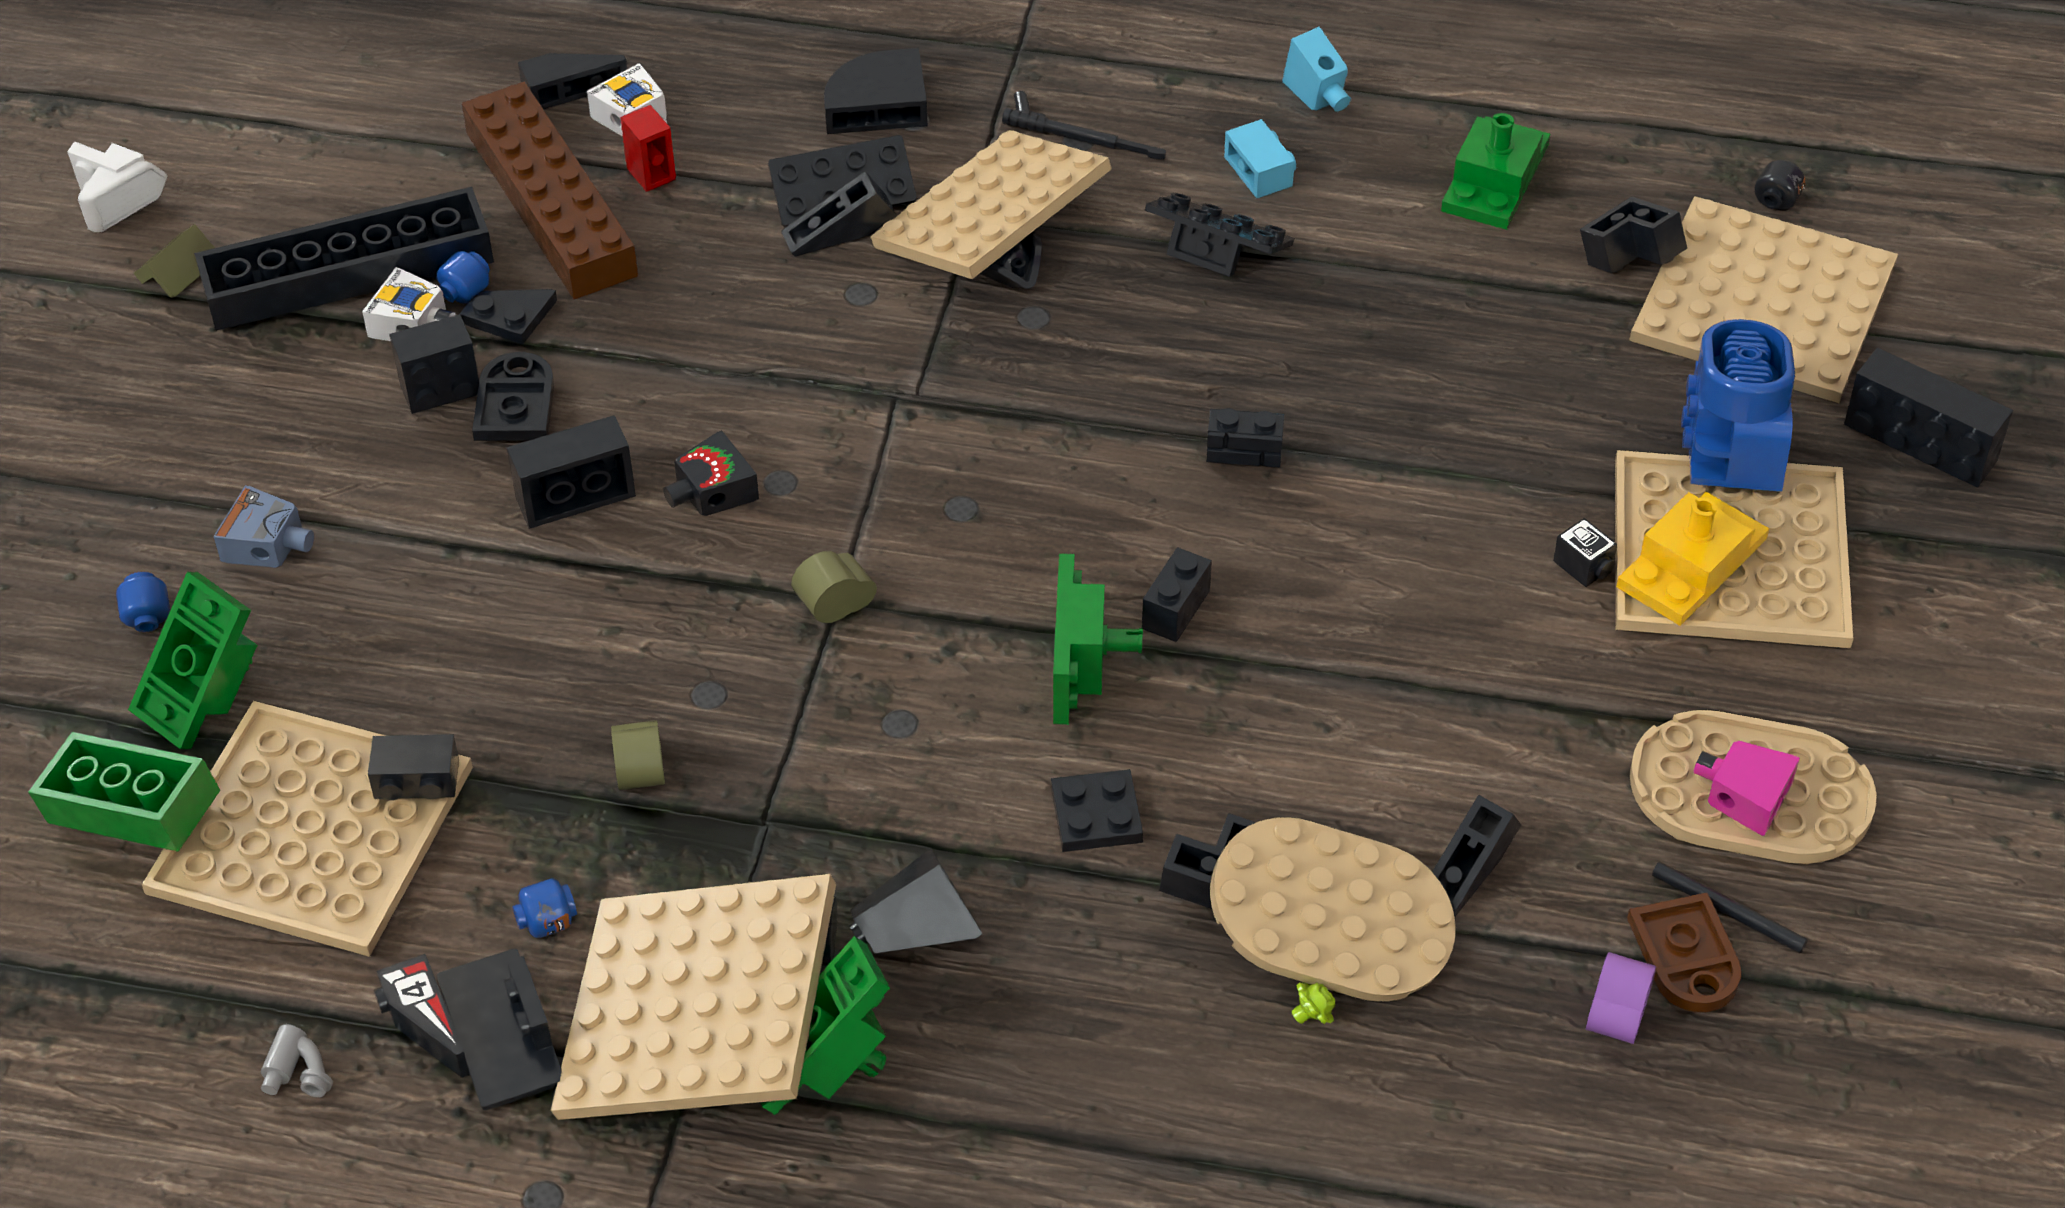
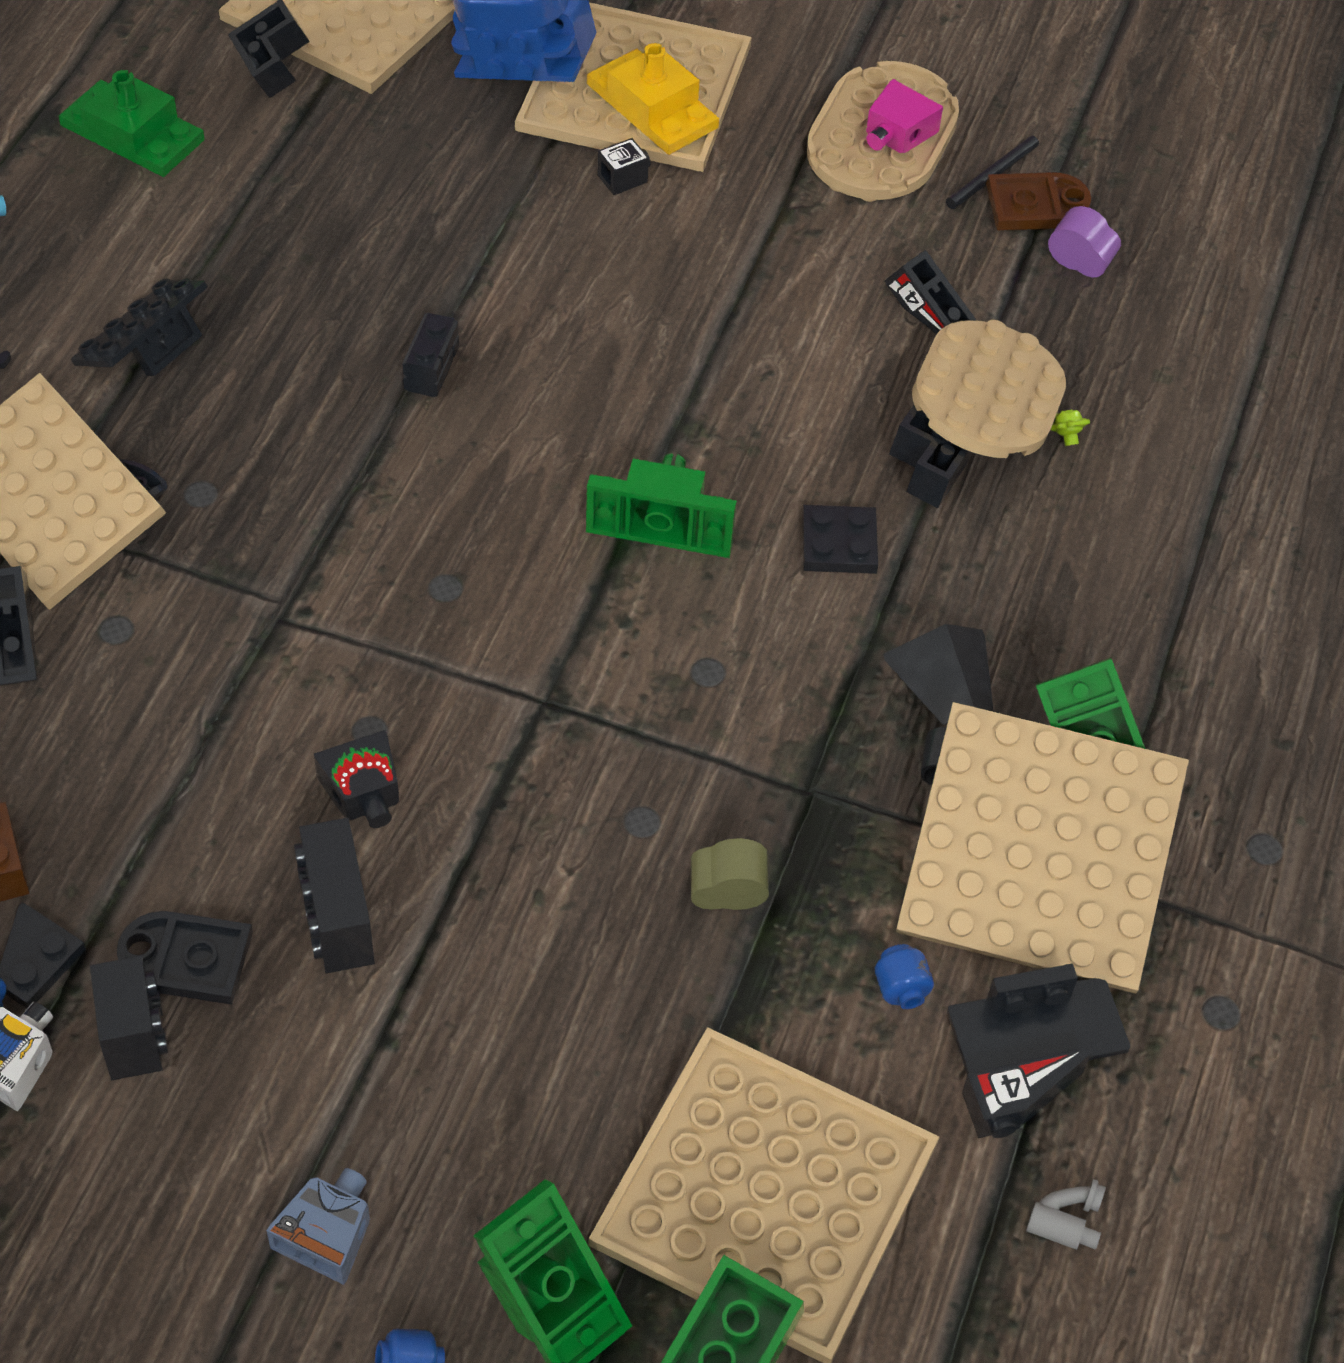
camera: 85 degrees left, 5 degrees up
(413, 766) = (729, 1070): black brick -> none
(833, 585) = (544, 690): olive piece -> none
(1176, 594) = (611, 434): black brick -> none
(1259, 158) = (54, 280): medium azure brick -> none

